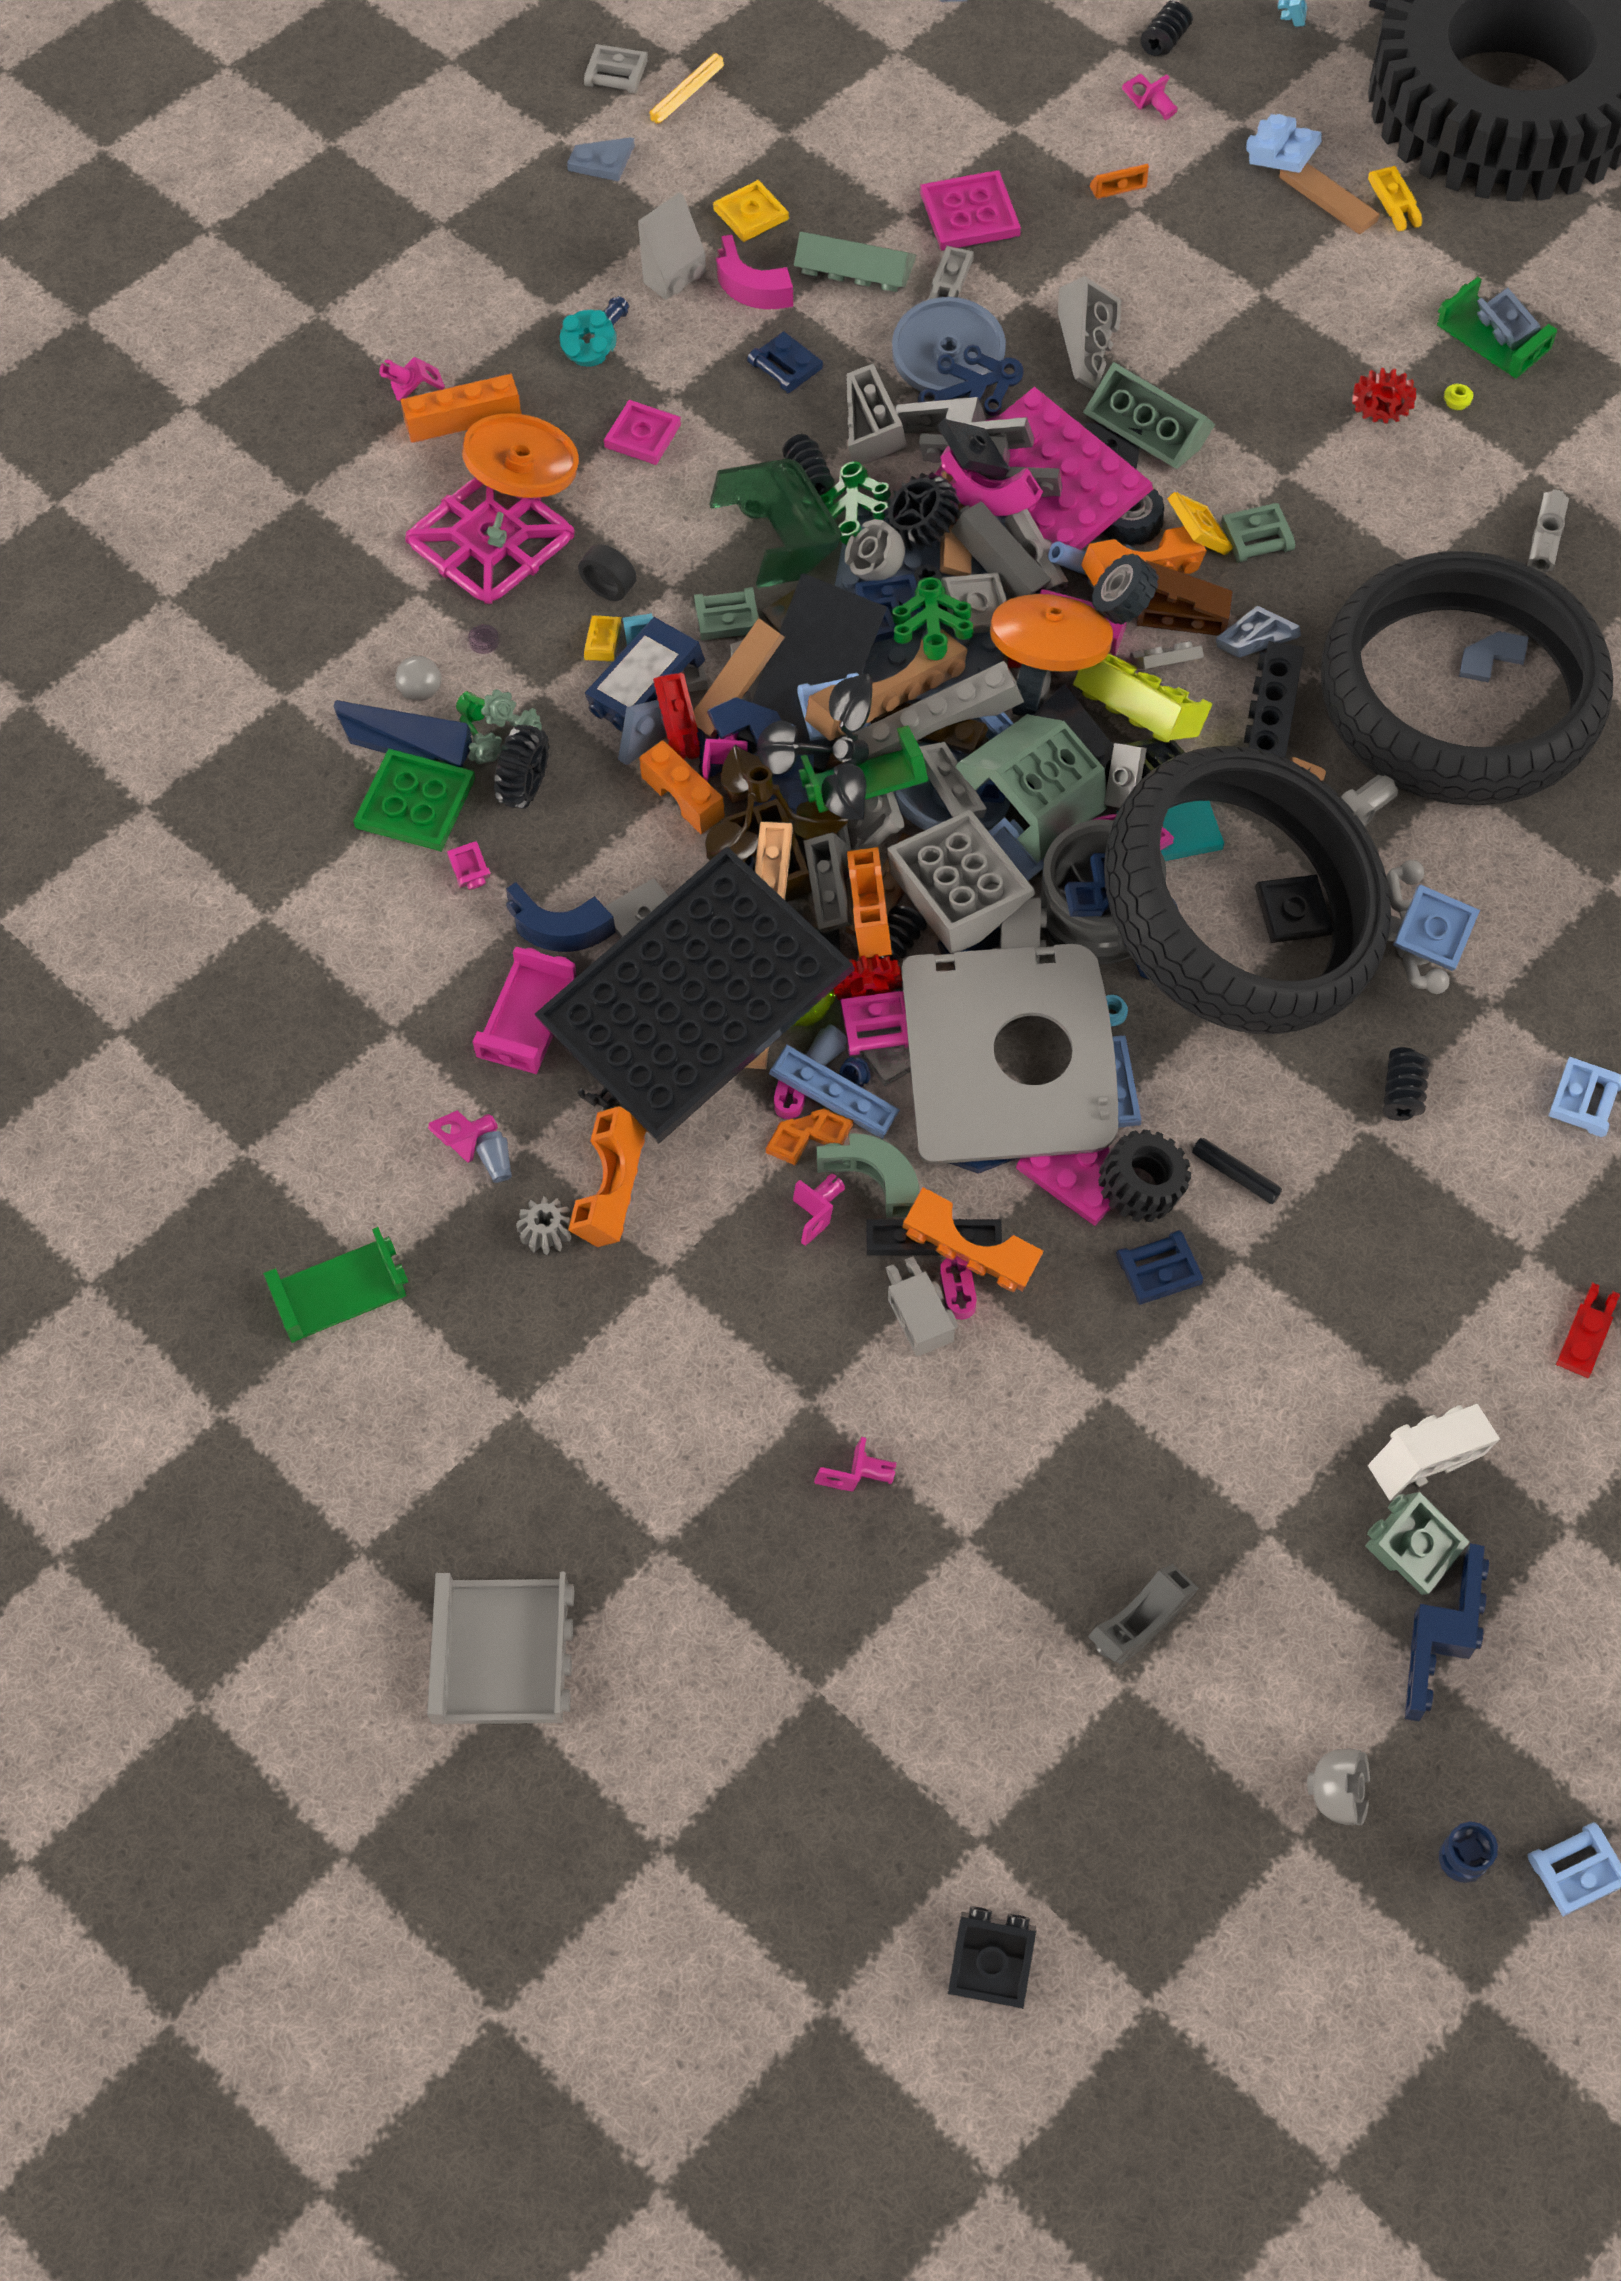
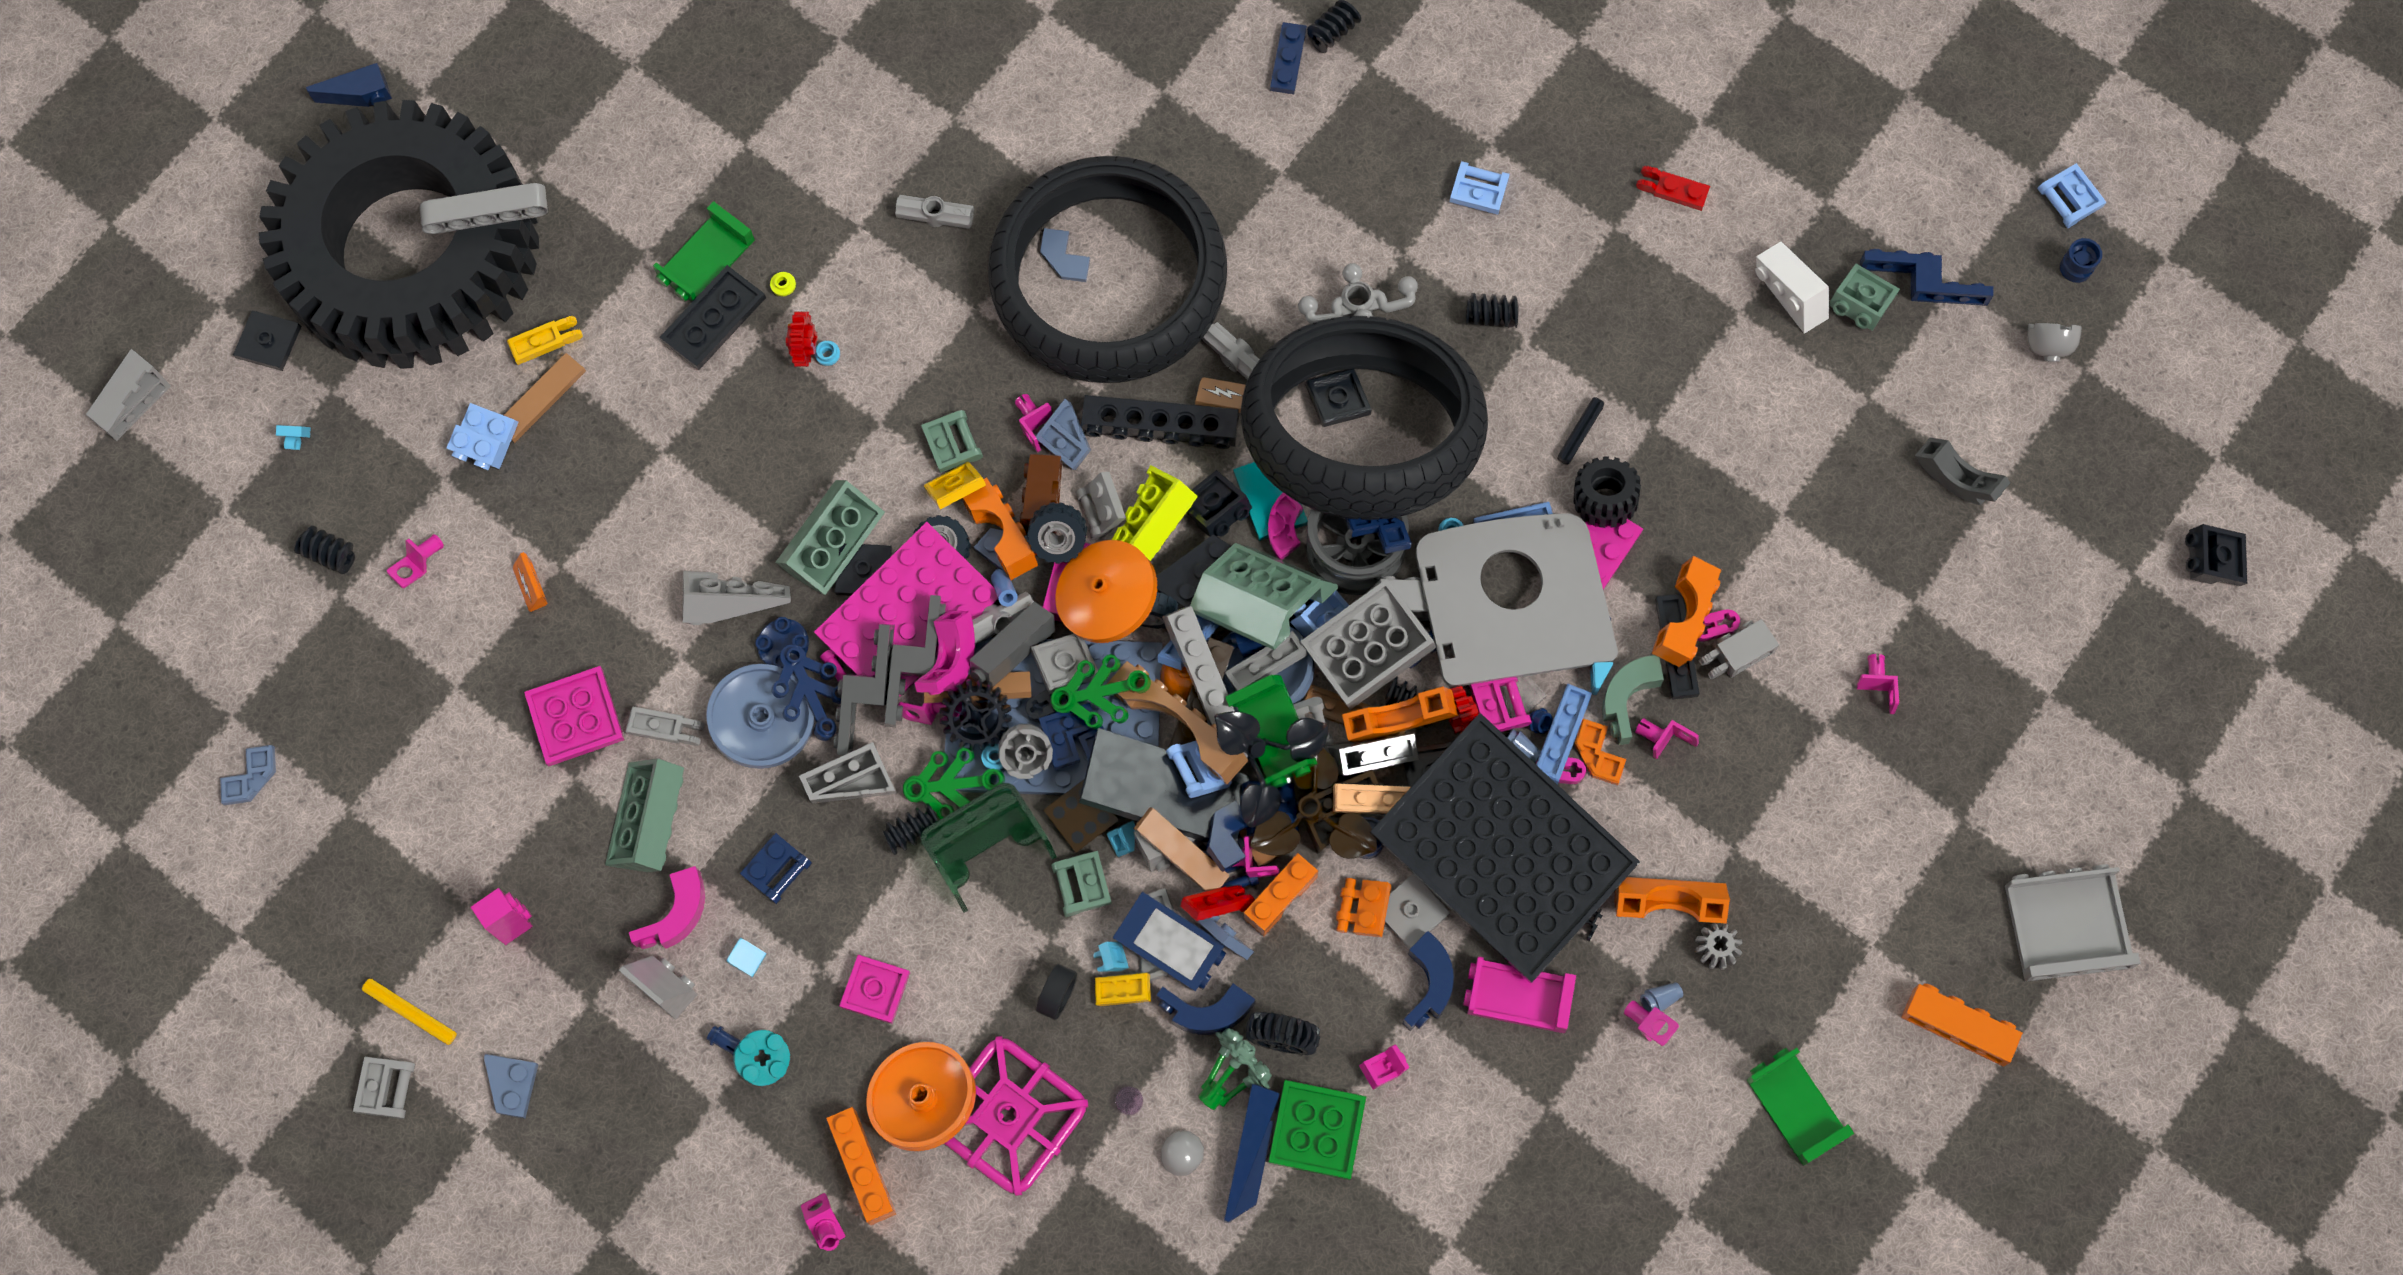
camera: 95 degrees left, 10 degrees up
(396, 1487) = (1961, 1024): none -> orange brick
(497, 536) = (1021, 1103): sand green hand -> none
(565, 733) = (1207, 1020): none -> dark blue arch
(644, 870) = (1371, 908): none -> orange plate
(696, 333) = (746, 957): none -> slope
(751, 210) = (582, 924): yellow plate -> none
(760, 133) = (502, 915): none -> dark pink brick
(904, 1140) = (1598, 674): none -> medium azure slope
(973, 448) = (920, 666): black plate -> none
(1037, 374) = (779, 635): none -> dark blue dish
(1124, 773) = (1235, 528): light grey plate -> none
(1164, 1275) = (1680, 475): dark blue plate -> none
(1277, 602) = (1032, 418): none -> dark pink bracket
(1372, 430) = (827, 346): none -> medium azure plate
(1418, 334) = (712, 317): none -> black plate
(1436, 927) = (1370, 282): medium blue plate -> none
(1508, 318) = (696, 241): sand blue bracket -> none
(1529, 102) = (483, 208): none -> light grey beam

